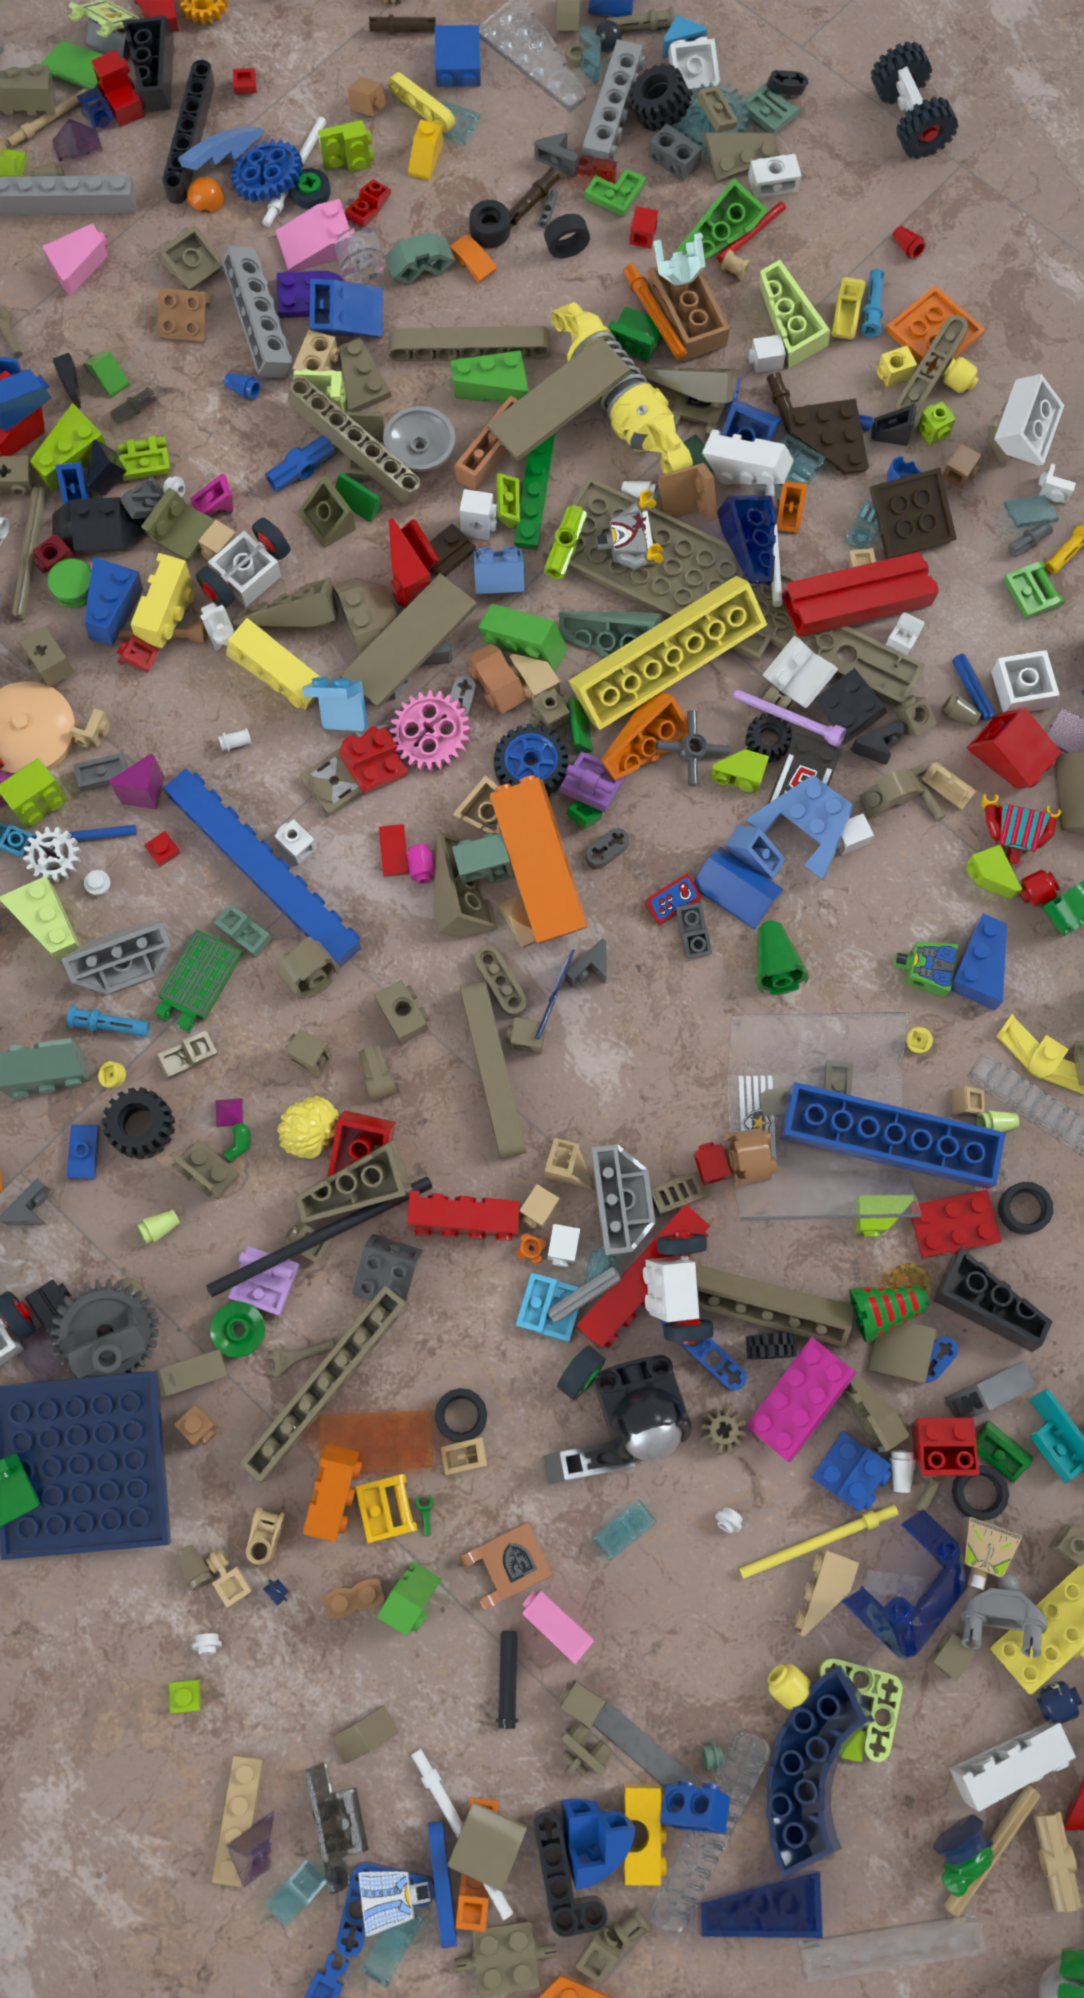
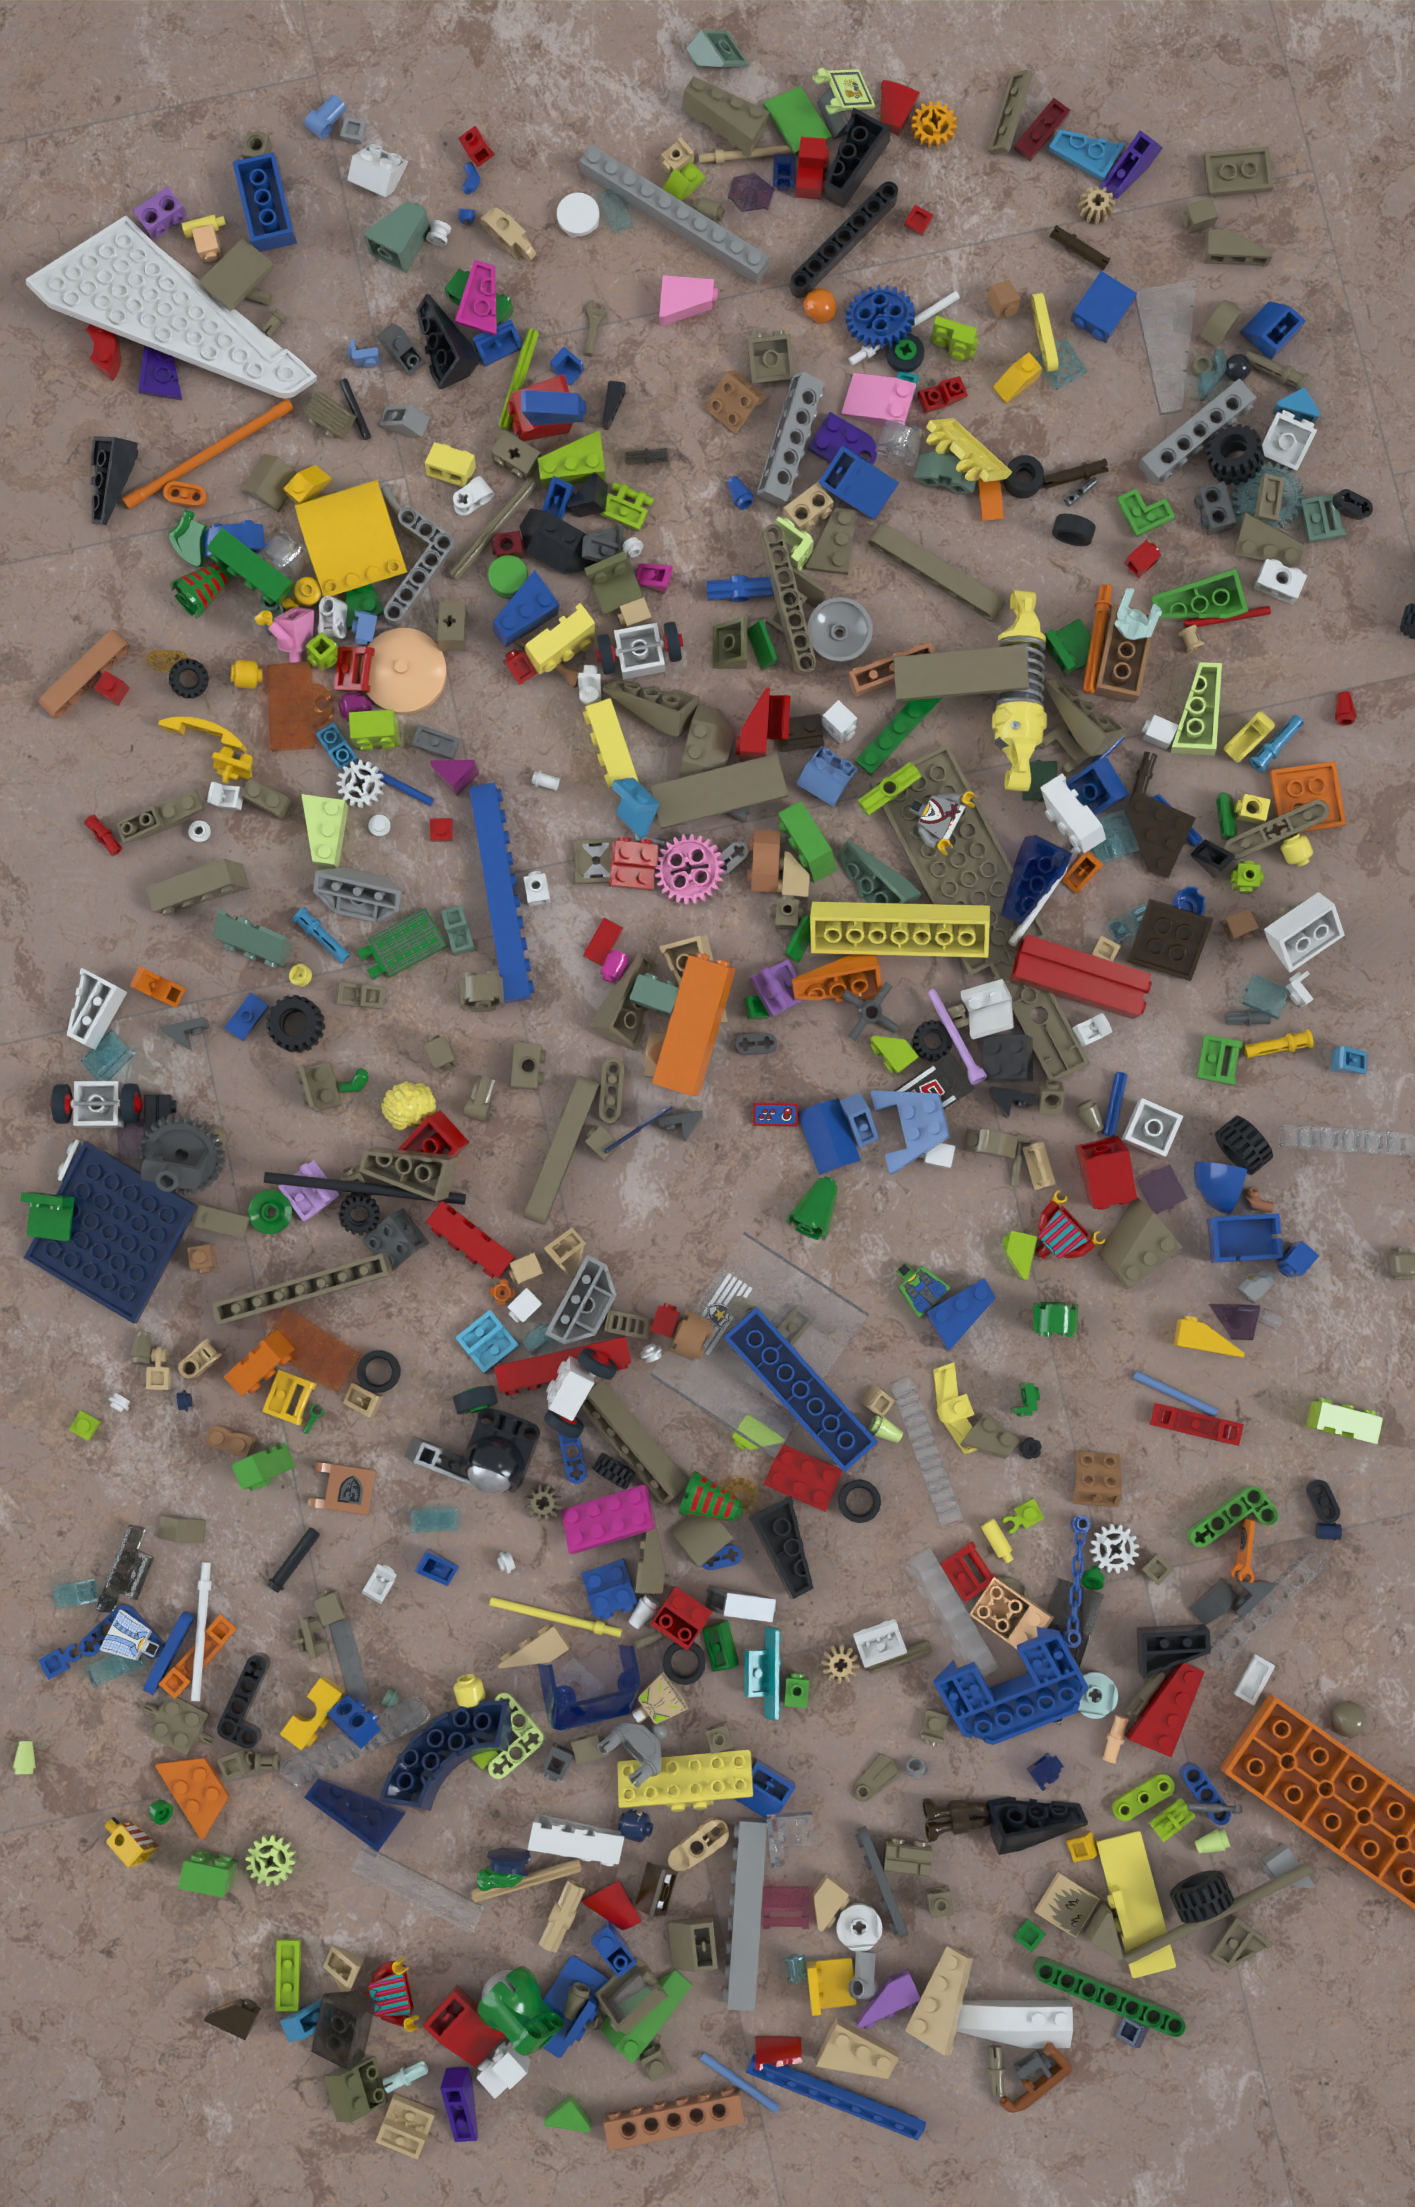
camera: 40 degrees right, 10 degrees up
(96, 728) = (452, 706): tan bracket -> none
(107, 373) = (645, 414): bright green slope -> none
(157, 1226) = (263, 1104): yellowish green cone -> none
(224, 144) = (853, 272): medium blue slope -> none
(229, 1112) = (363, 1056): magenta slope -> none
(238, 1814) = (69, 1524): tan plate -> none
(251, 1850) = (65, 1549): slope -> none
(285, 1359) = (289, 1253): dark tan piece -> none
(315, 1267) = (359, 1226): none -> black tyre
(436, 228) = (974, 456): none -> light yellow hinge
(487, 1846) = (210, 1650): dark tan slope -> none
(489, 377) = (931, 613): bright green wedge -> none
(508, 500) = (872, 723): lime slope -> none
(534, 745) = (746, 925): wheel -> none
(554, 153) = (1117, 445): dark grey slope -> none
(557, 1625) = (347, 1549): bright pink slope -> none
(584, 1295) = (513, 1350): light grey axle -> none
(594, 1840) = (279, 1694): blue brick -> none
(602, 168) = (1145, 486): clear red plate -> none
(616, 1638) = (380, 1583): none -> white bracket
(634, 488) = (979, 781): white cone -> none
(662, 1577) = (436, 1567): none -> blue slope
(688, 492) = (1011, 808): medium nougat bracket -> none
(693, 930) = (773, 1146): dark grey slope -> none
(721, 1204) = (651, 1353): none -> white plate
(876, 388) = (1226, 816): none -> green slope
(919, 1039) = (874, 1334): light yellow tile -> none
(942, 1703) = (557, 1772): none -> dark grey brick
(1039, 888) = (1043, 1286): red head -> none

